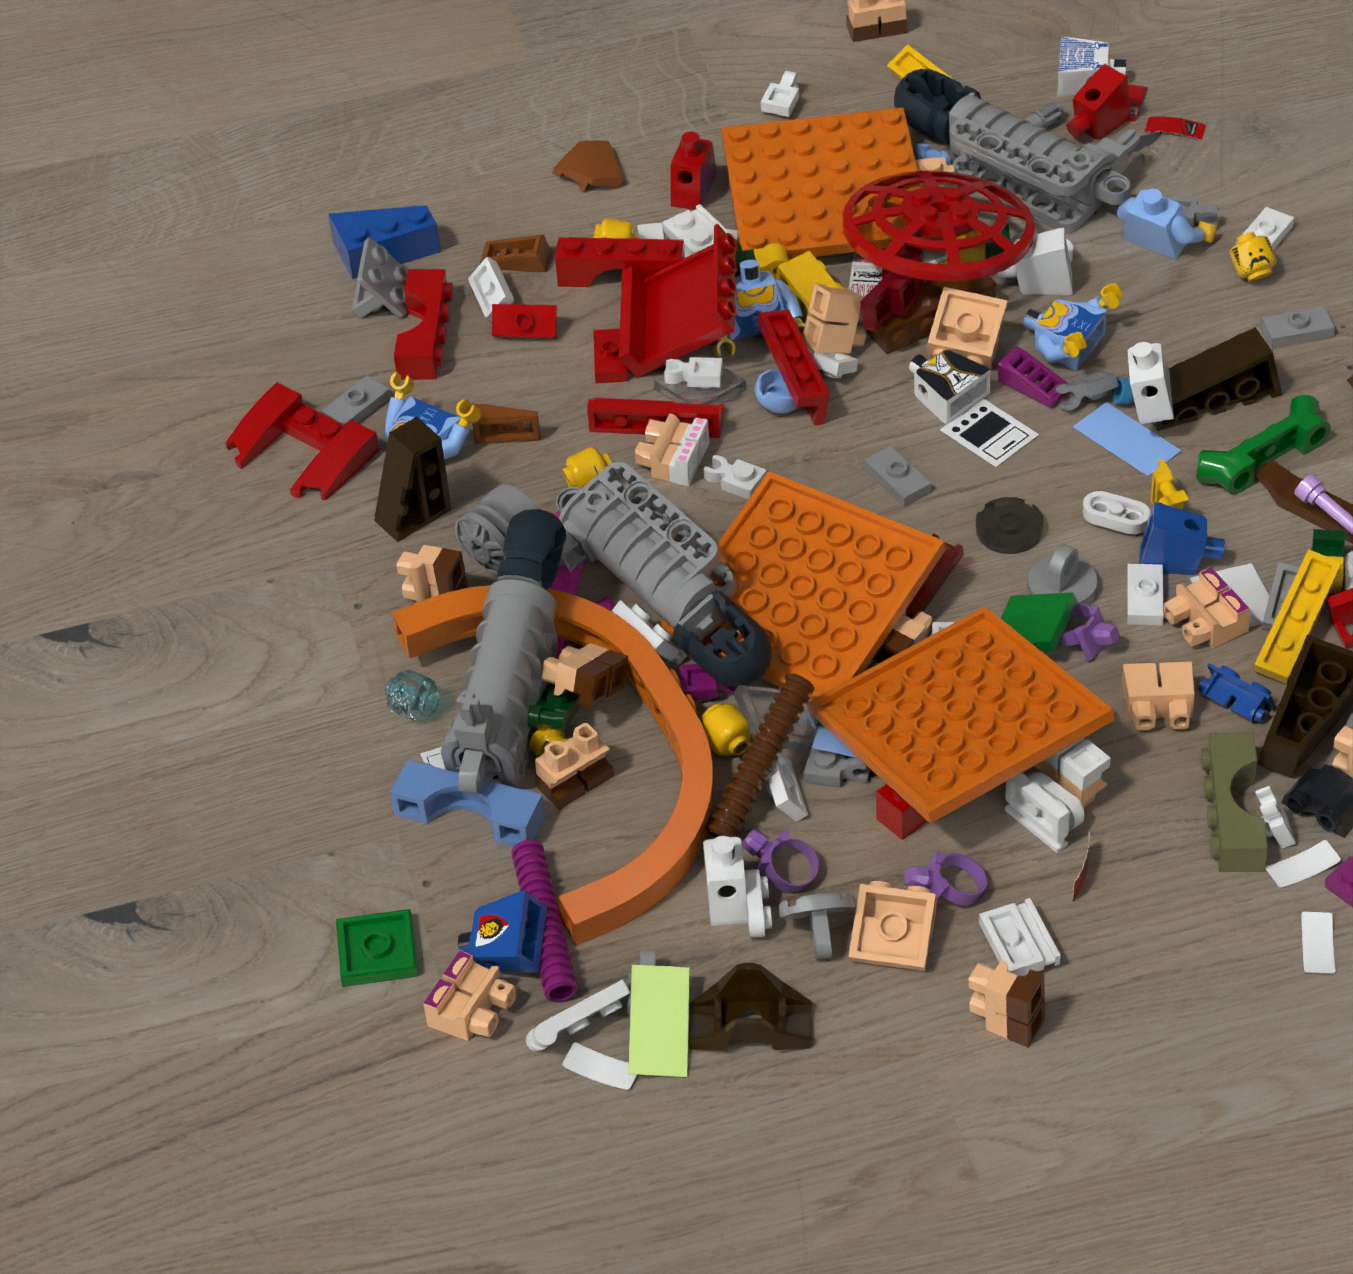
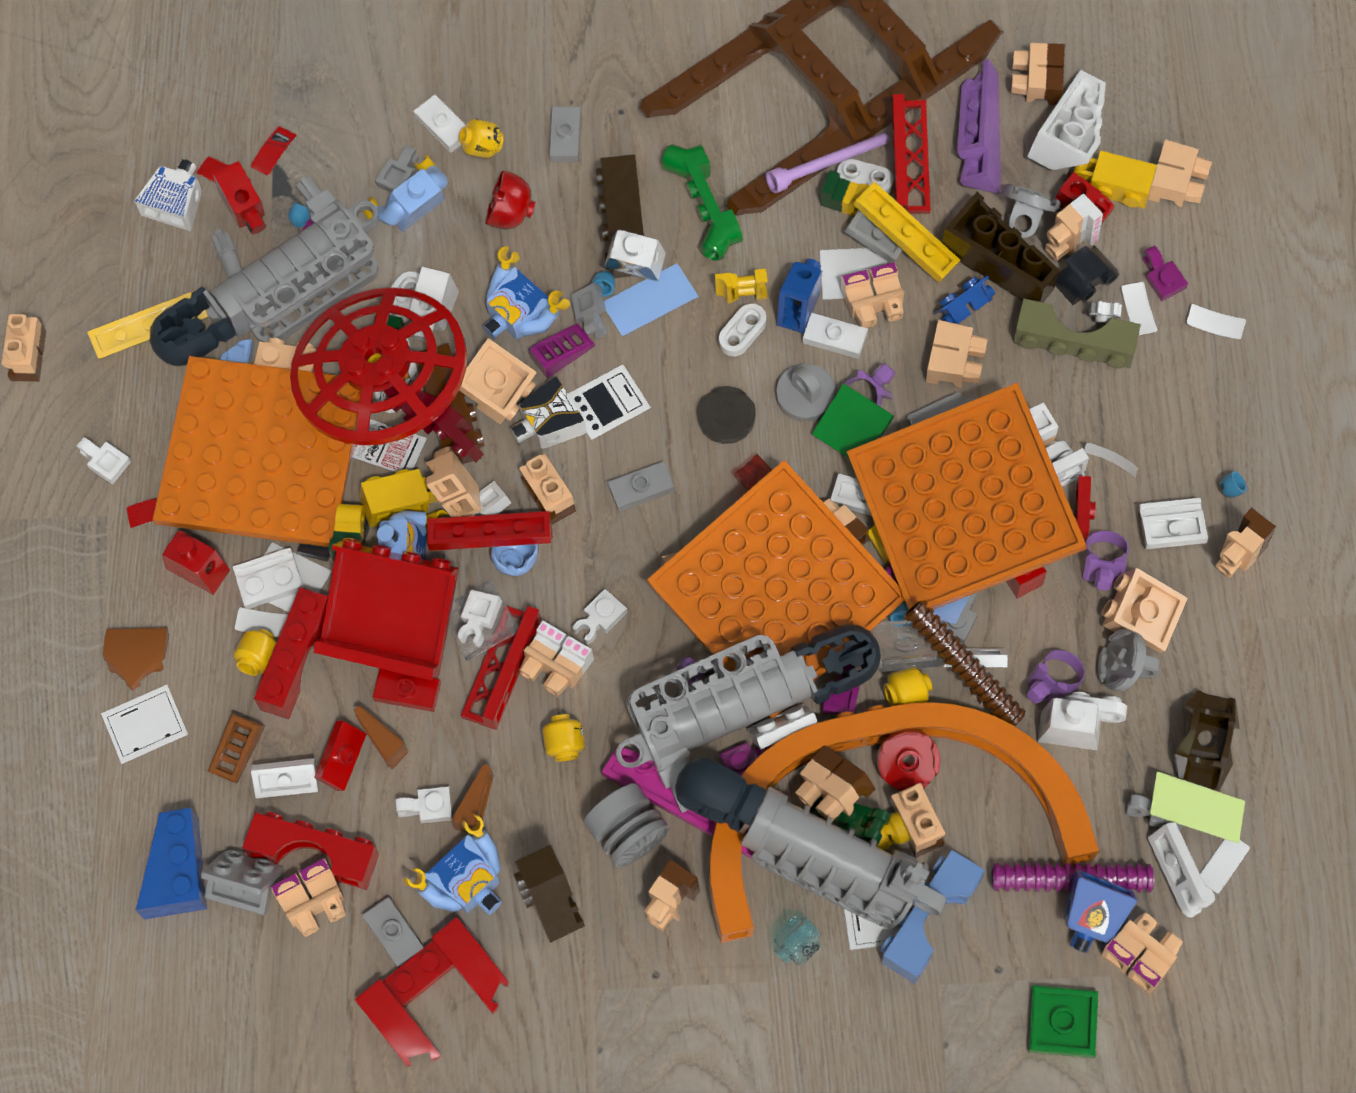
camera: 75 degrees left, 20 degrees up
(373, 333) = (324, 892): none -> light nougat hips
(489, 392) = (431, 805): none -> white plate
(524, 194) = (144, 724): none -> white sticker
(550, 344) = (387, 743): none -> dark orange slope
(640, 744) = (907, 774): none -> red plate
(862, 396) = (547, 488): none -> light nougat hips
(1005, 846) = (1084, 508): none -> red plate
(1100, 988) = (1233, 485): none -> dark azure hinge
(1185, 292) = (510, 202): none -> red cylinder

